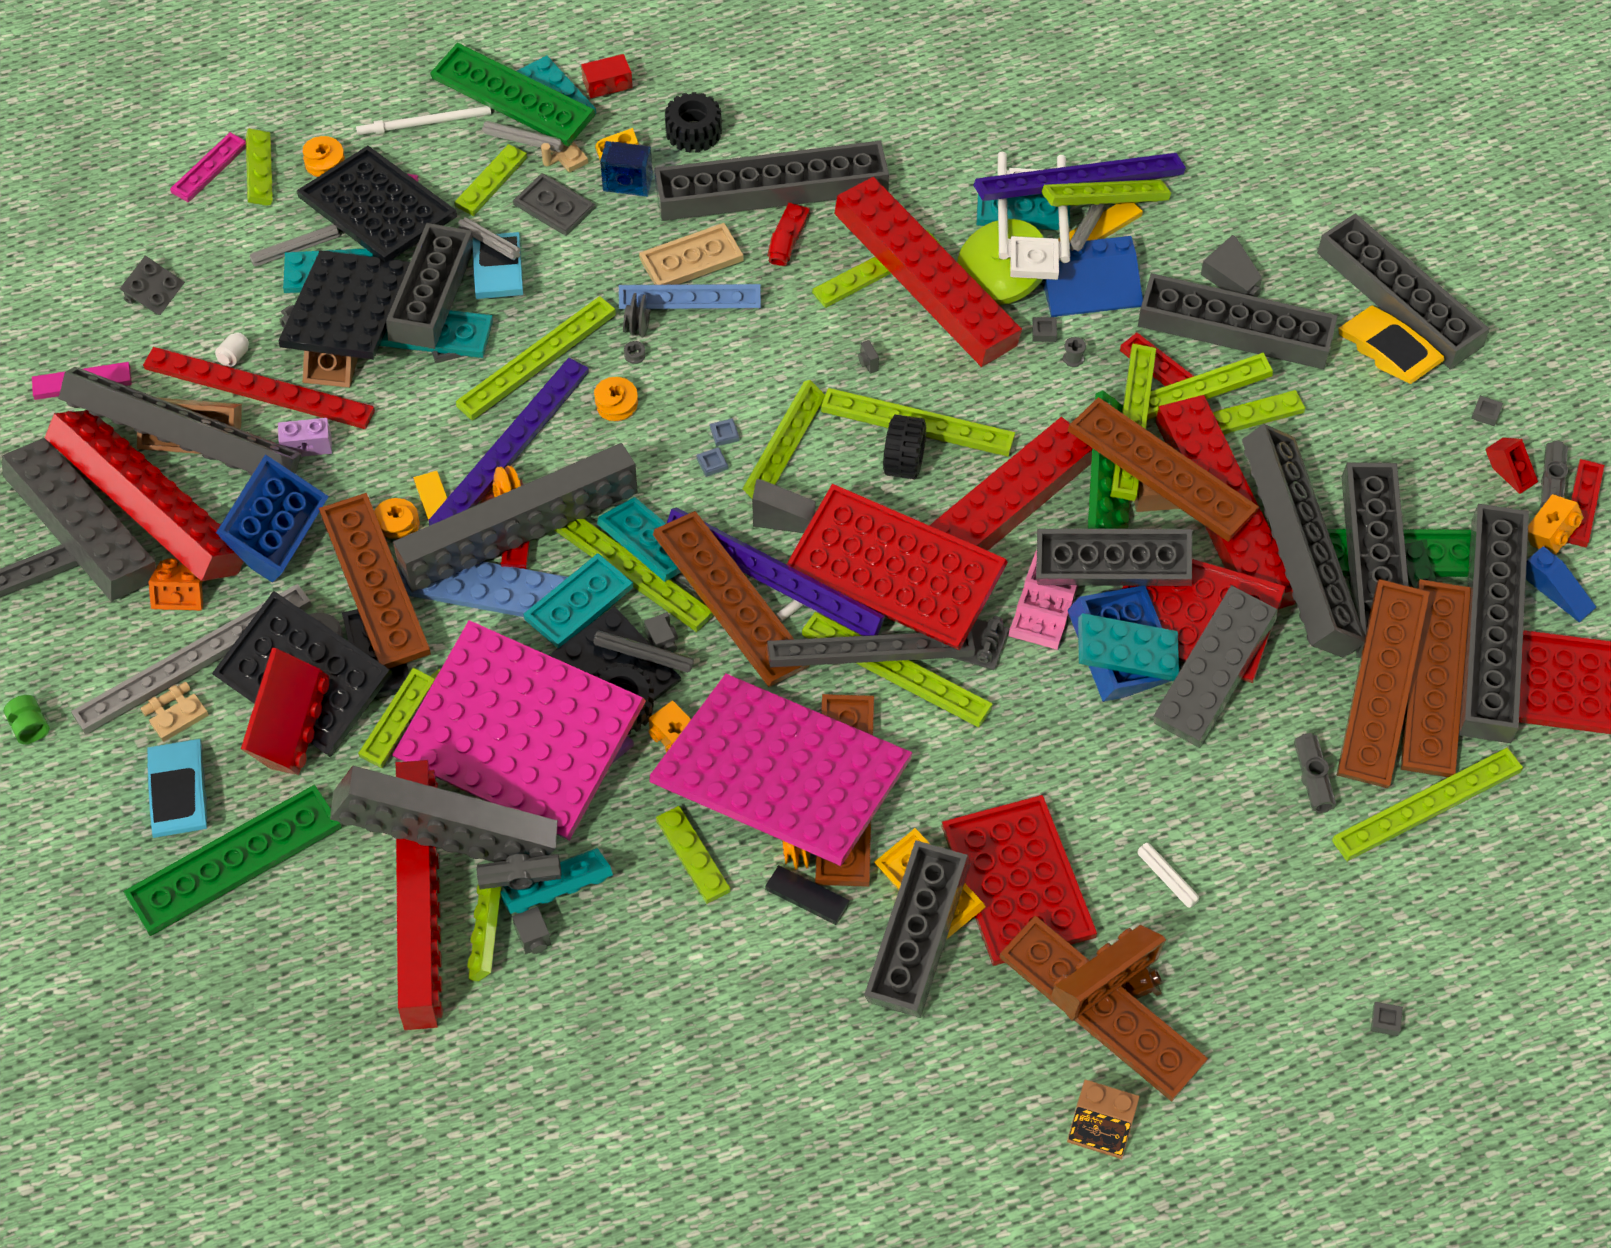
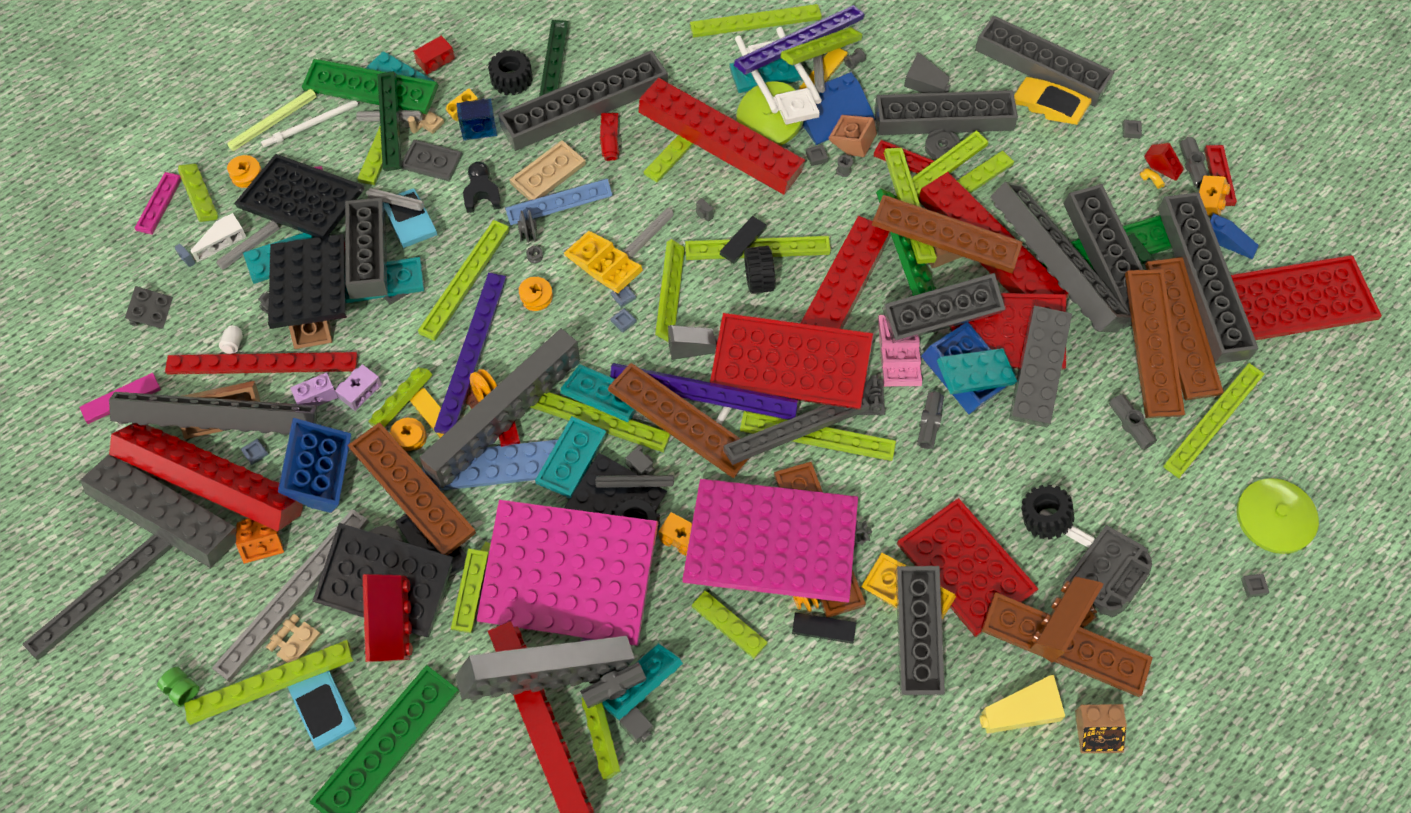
camera: 20 degrees left, 5 degrees up
(129, 746) = (268, 682): none -> lime plate
(211, 486) = (254, 451): none -> sand blue tile
(215, 236) = (184, 255): none -> sand blue tile
(265, 225) = (220, 236): none -> white slope
(359, 447) = (358, 387): none -> lavender brick
(380, 103) = (271, 120): none -> yellowish green axle
(412, 469) = (401, 397): none -> lime plate
(518, 142) = (389, 121): none -> dark green plate
(599, 253) = (480, 187): none -> black piece
(716, 384) = (603, 261): none -> yellow slope
(758, 116) = (554, 56): none -> dark green plate
(786, 366) = (648, 233): none -> light grey axle
(903, 403) = (743, 239): none -> black tile
(904, 792) = (862, 532): none -> dark grey gear
(1016, 1064) = (1026, 708): none -> light yellow slope
(1038, 139) = (755, 20): none -> lime plate
(1048, 693) = (930, 420): none -> dark grey piece
(1103, 316) = (854, 134): none -> nougat slope
(1148, 221) = (855, 58): none -> dark grey bush
(1148, 860) = (1049, 525): none -> black tyre
(1205, 943) = (1119, 565): none -> dark grey plate
(1212, 350) = (939, 136): none -> dark grey plate
(1459, 946) = (1277, 516): none -> lime dish
(1489, 478) = (1156, 179): none -> yellow arm

